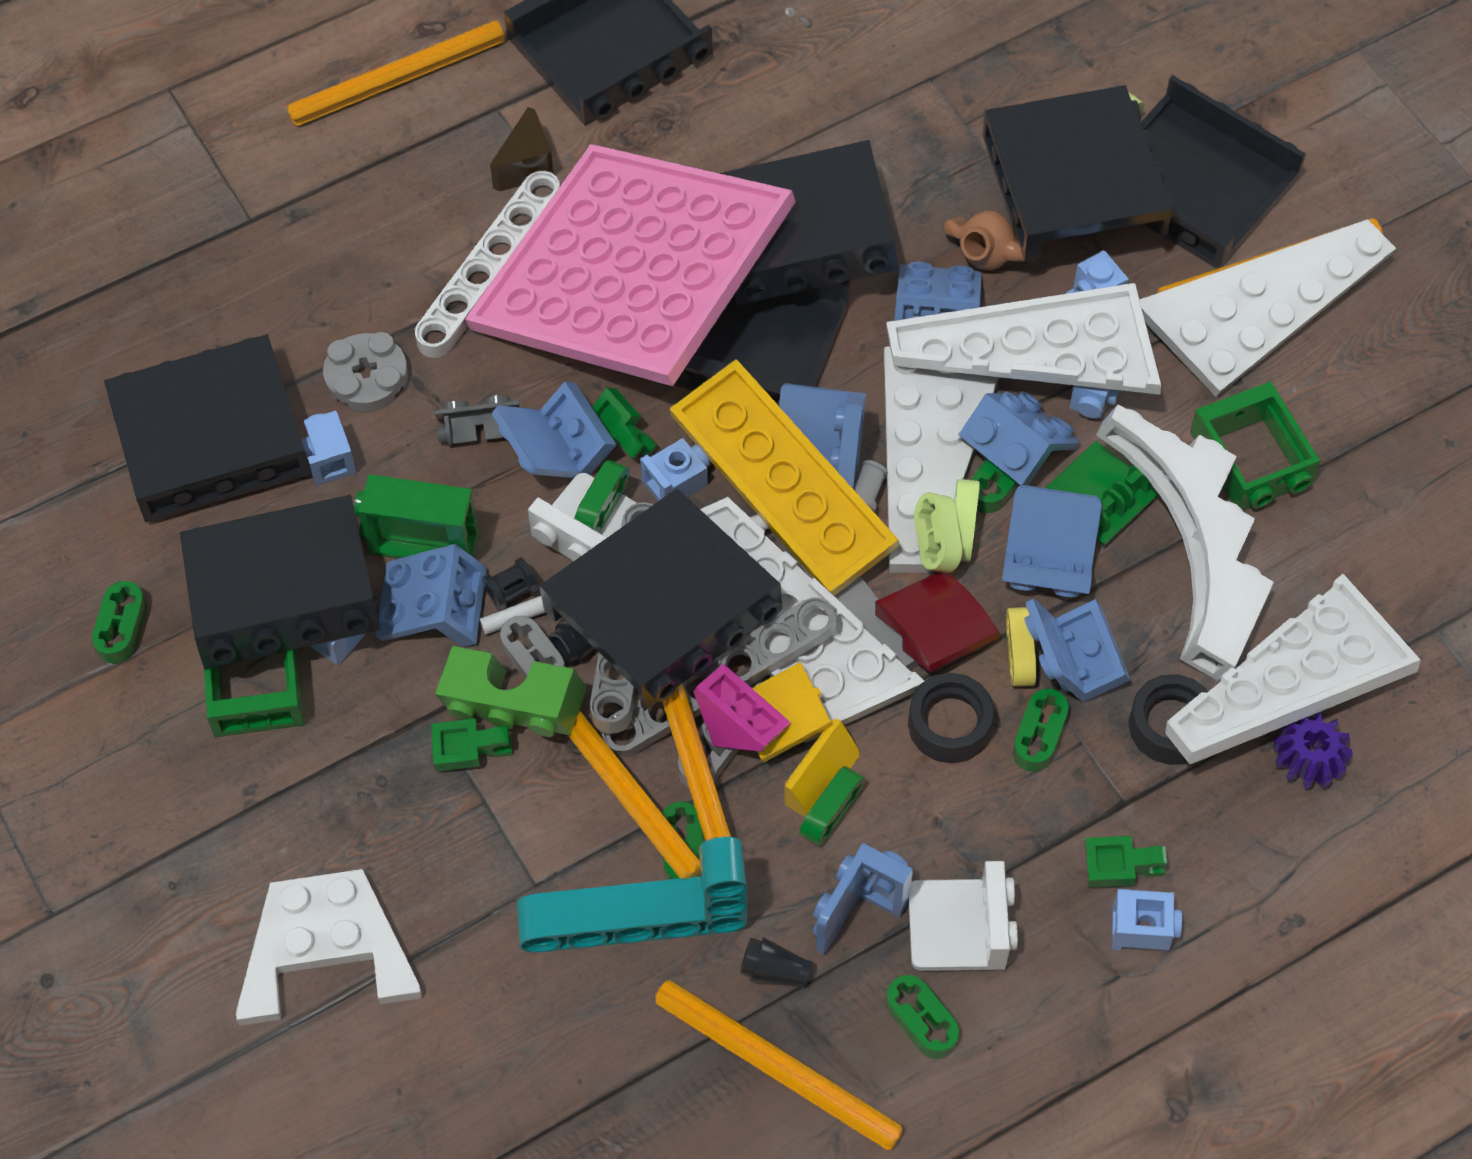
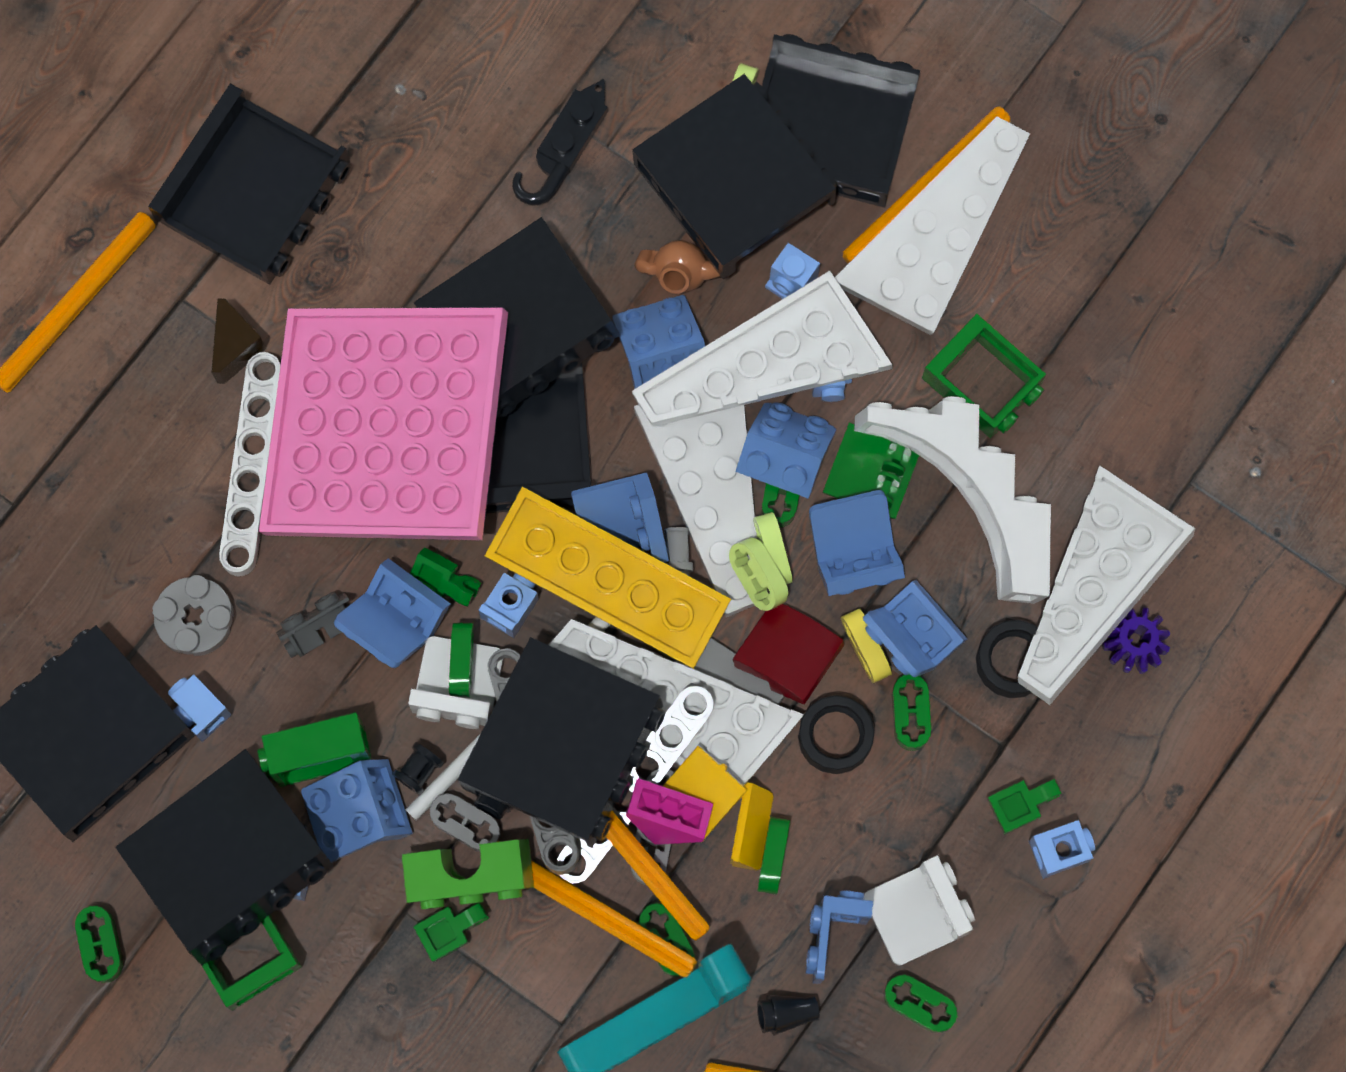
camera: 25 degrees left, 15 degrees up
(927, 104) = (566, 142): none -> black plate

